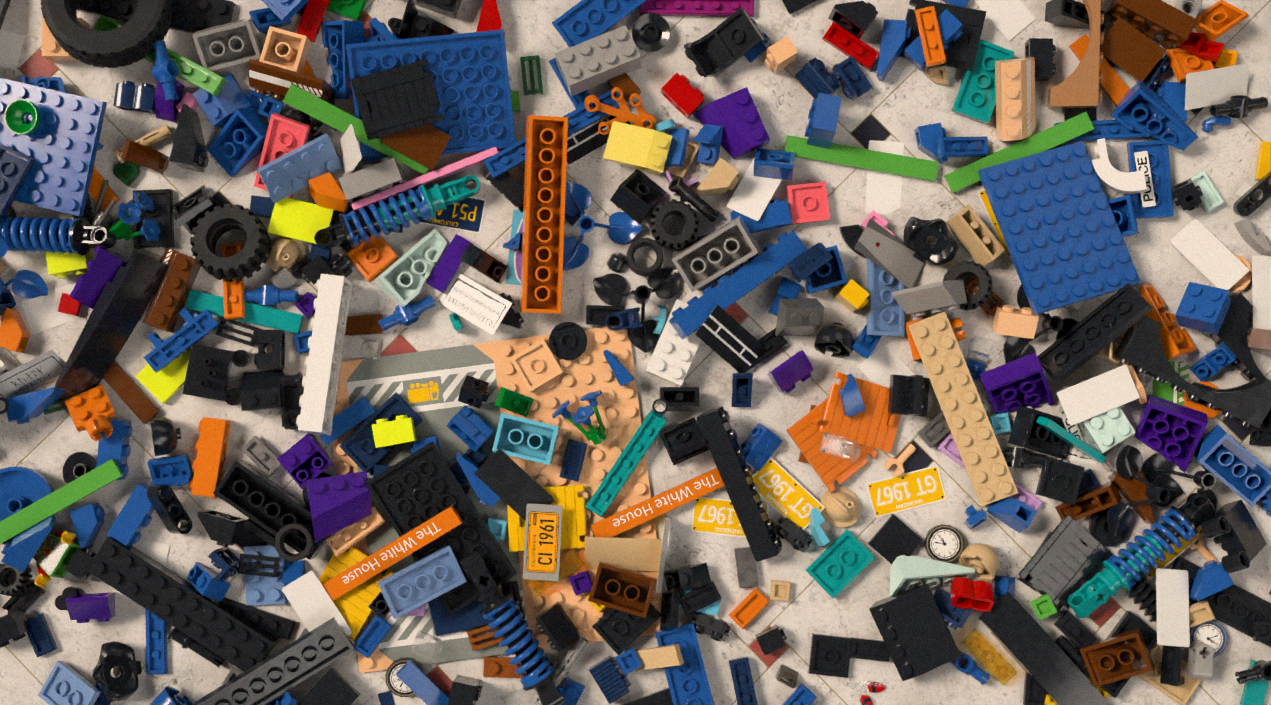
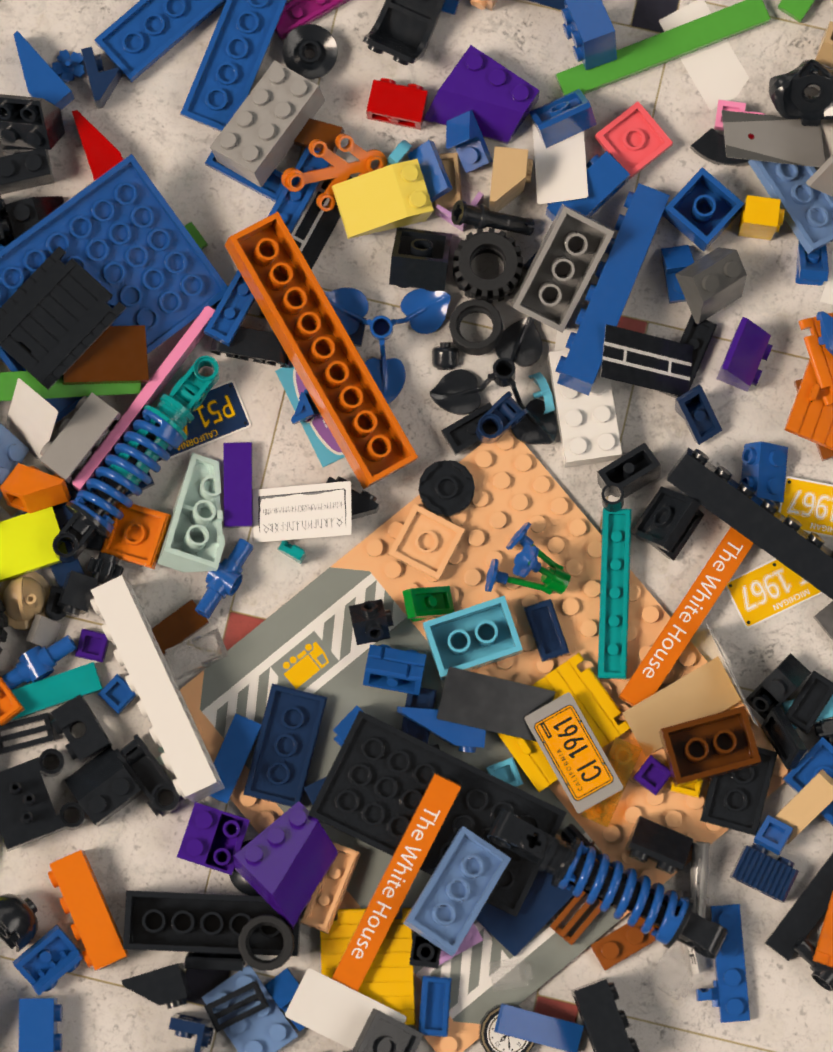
camera: 30 degrees left, 5 degrees down
(161, 506) = (79, 1005): black beam -> none
(262, 456) = (153, 868): flat silver plate -> none
(393, 432) = (302, 732): neon yellow brick -> none
(483, 262) = (280, 457): black slope -> none
(533, 91) = (209, 211): clear green tile -> none
(620, 372) = (533, 484): blue slope -> none
(809, 261) = (683, 206): dark blue hinge -> none
(835, 339) = (774, 284): black cylinder -> none

